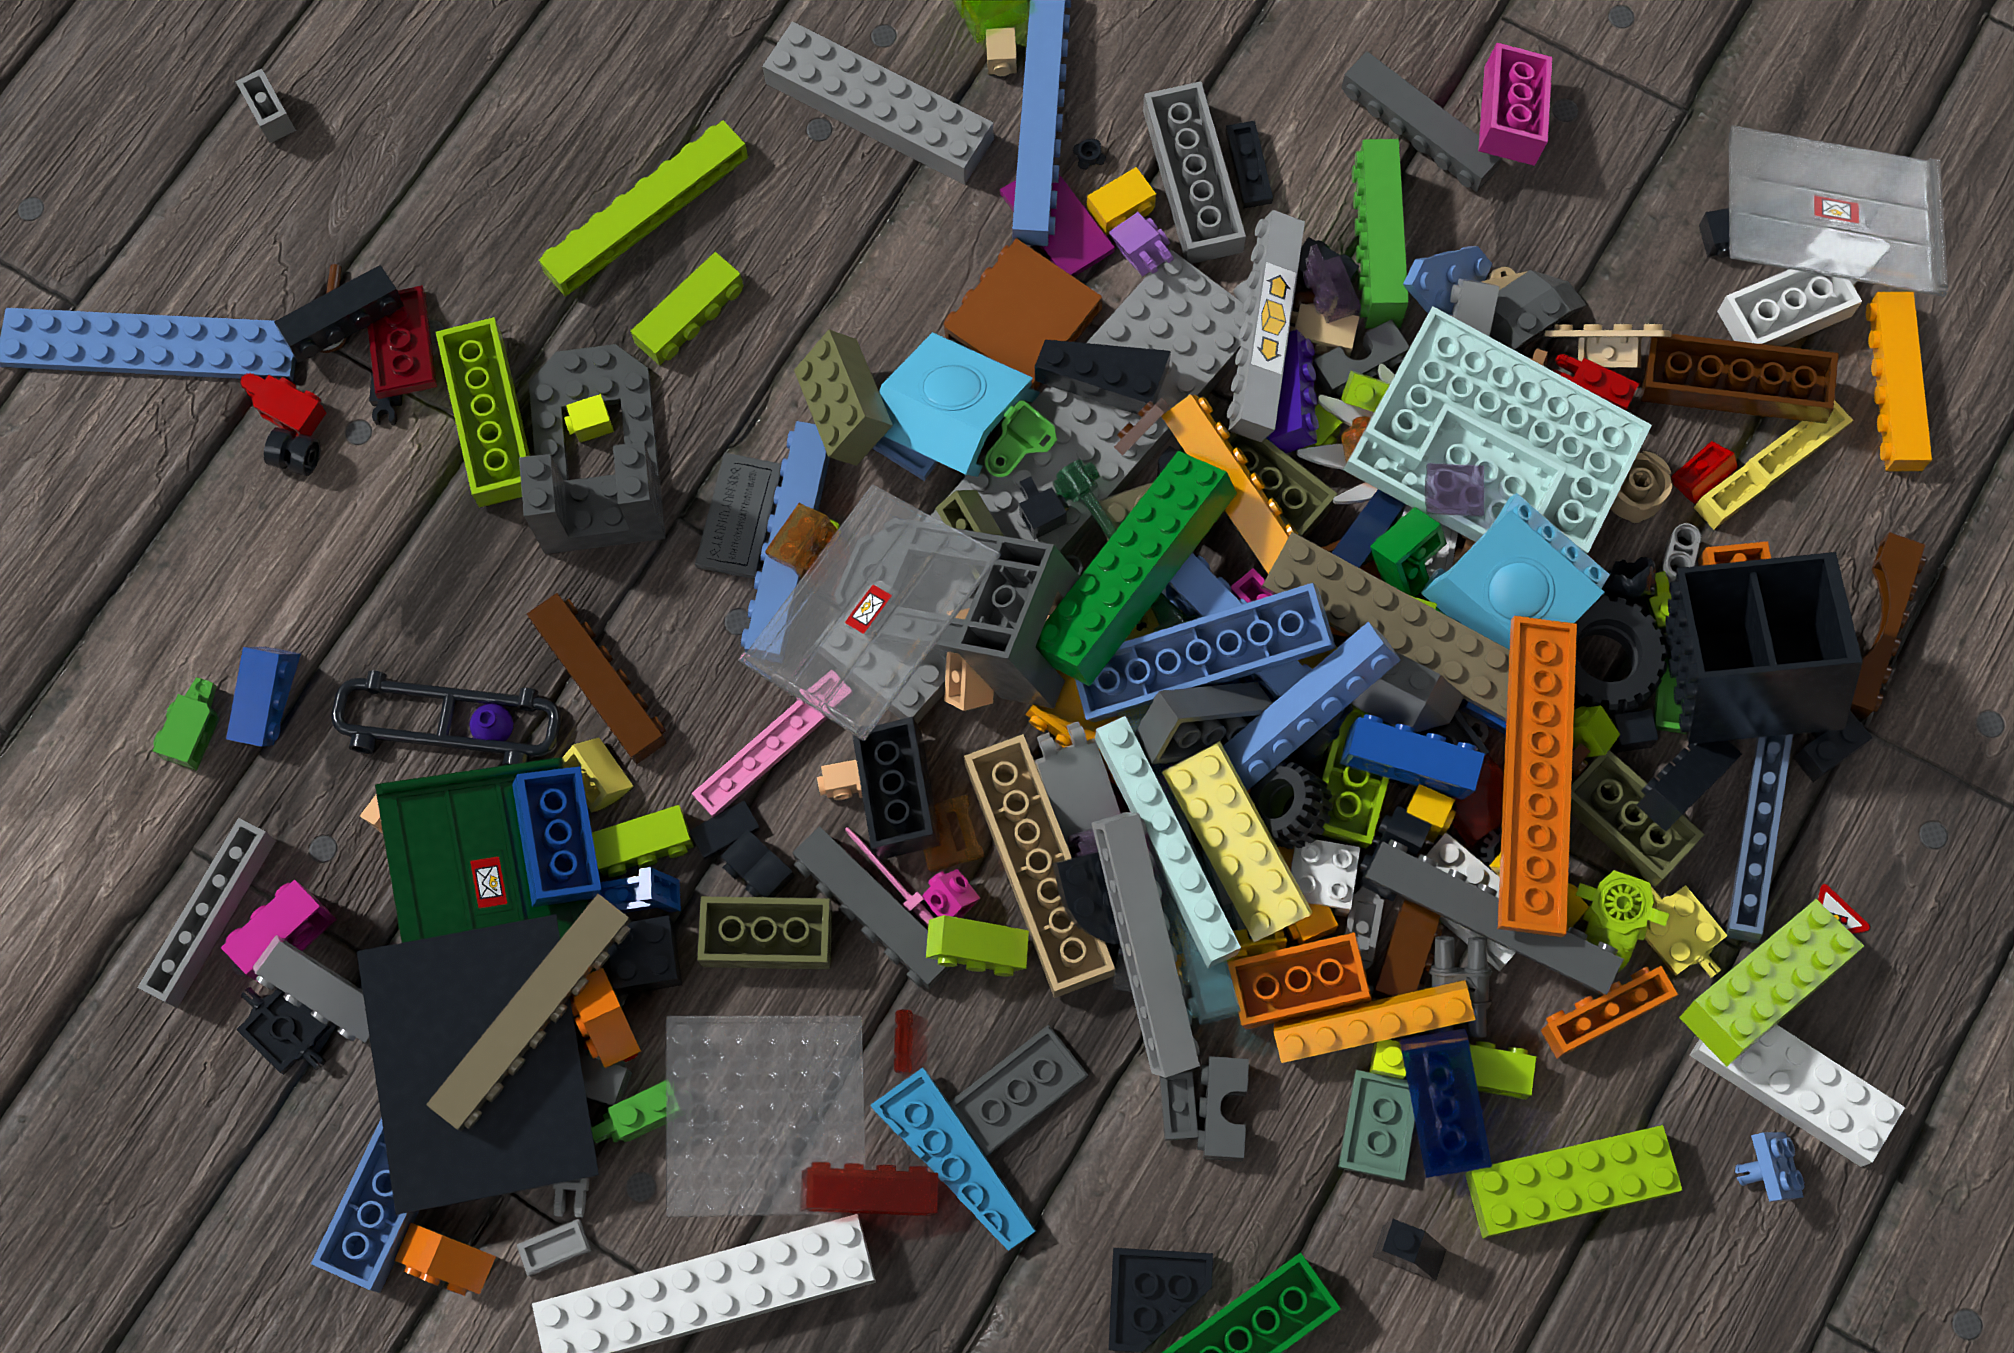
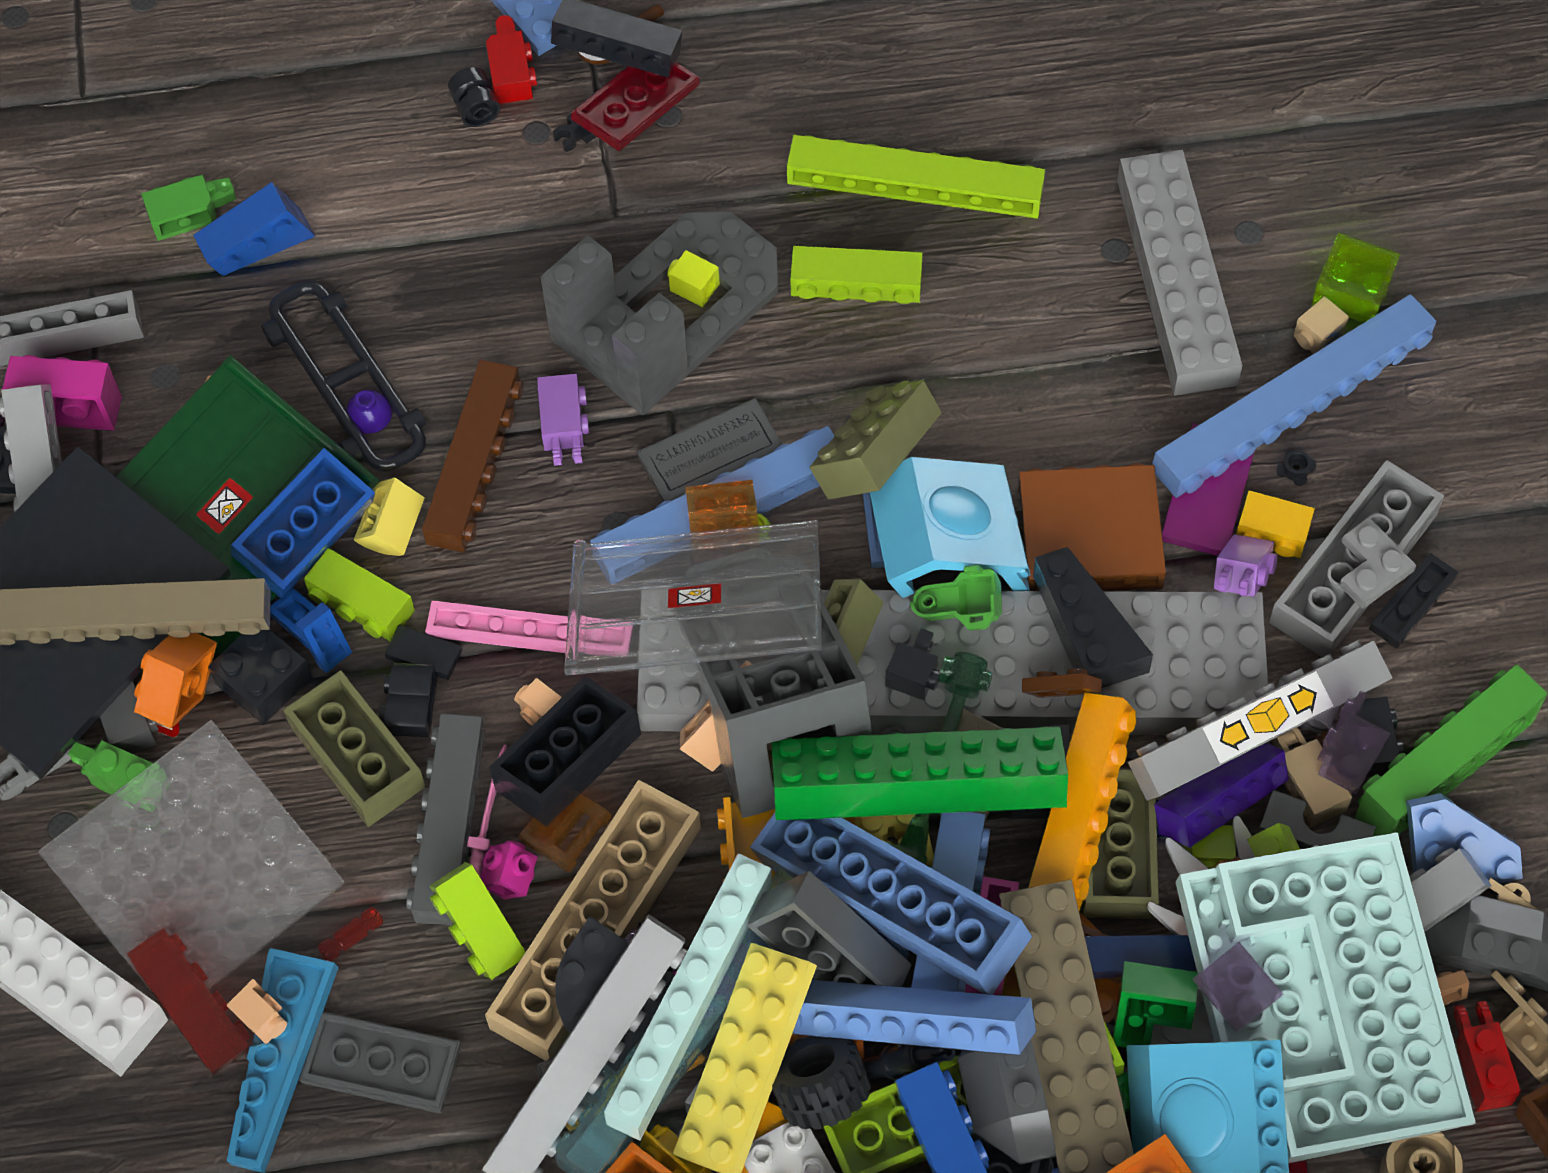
camera: 50 degrees right, 10 degrees down
(484, 409) = (635, 191): lime brick -> none
(621, 593) = (561, 415): none -> medium lavender hinge
(921, 1147) = (258, 1011): none -> light nougat brick
(1076, 782) = (690, 881): light grey tile -> none
(1218, 157) = (1381, 564): none -> light grey plate

